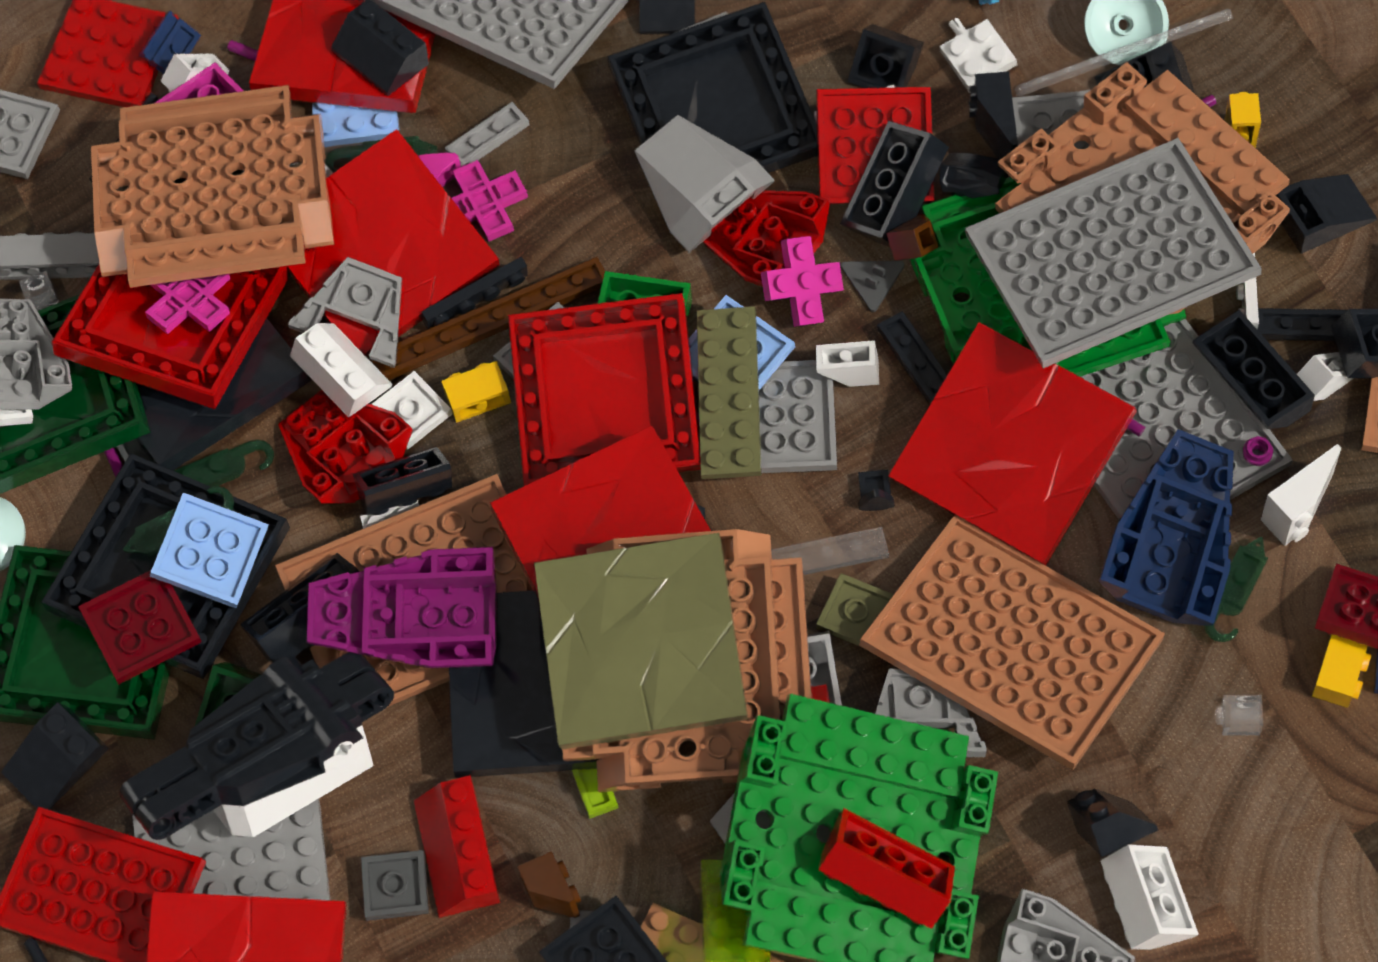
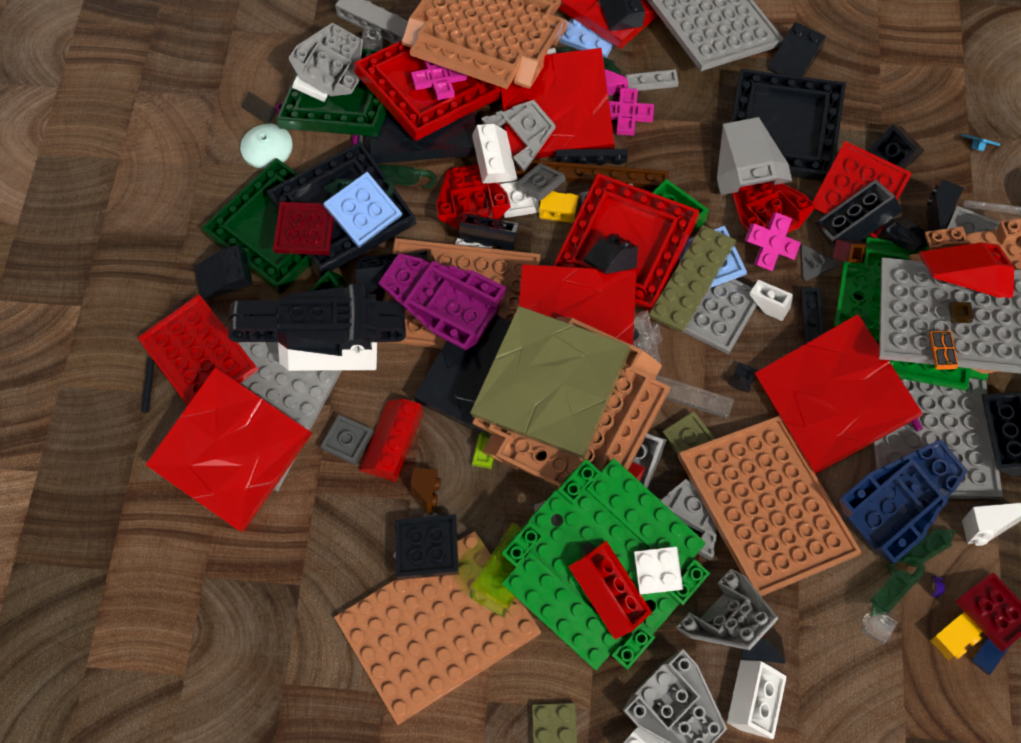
camera: 30 degrees right, 0 degrees up
(430, 370) = (540, 181): none -> dark grey plate
(605, 420) = (612, 254): none -> black slope
(719, 502) = (649, 335): none -> clear plate
(933, 806) = (658, 570): none -> white plate
(976, 51) = (953, 169): white plate -> none
(1062, 808) = (735, 618): none -> light grey wedge
(1089, 180) = (973, 266): none -> red wedge
(1109, 249) = (960, 312): none -> dark brown plate
(1117, 312) = (943, 350): none -> tile
(1234, 653) = (896, 588): none -> clear green plate
(1261, 444) = (987, 475): magenta plate -> none
(1281, 622) = (937, 587): none -> dark purple tile

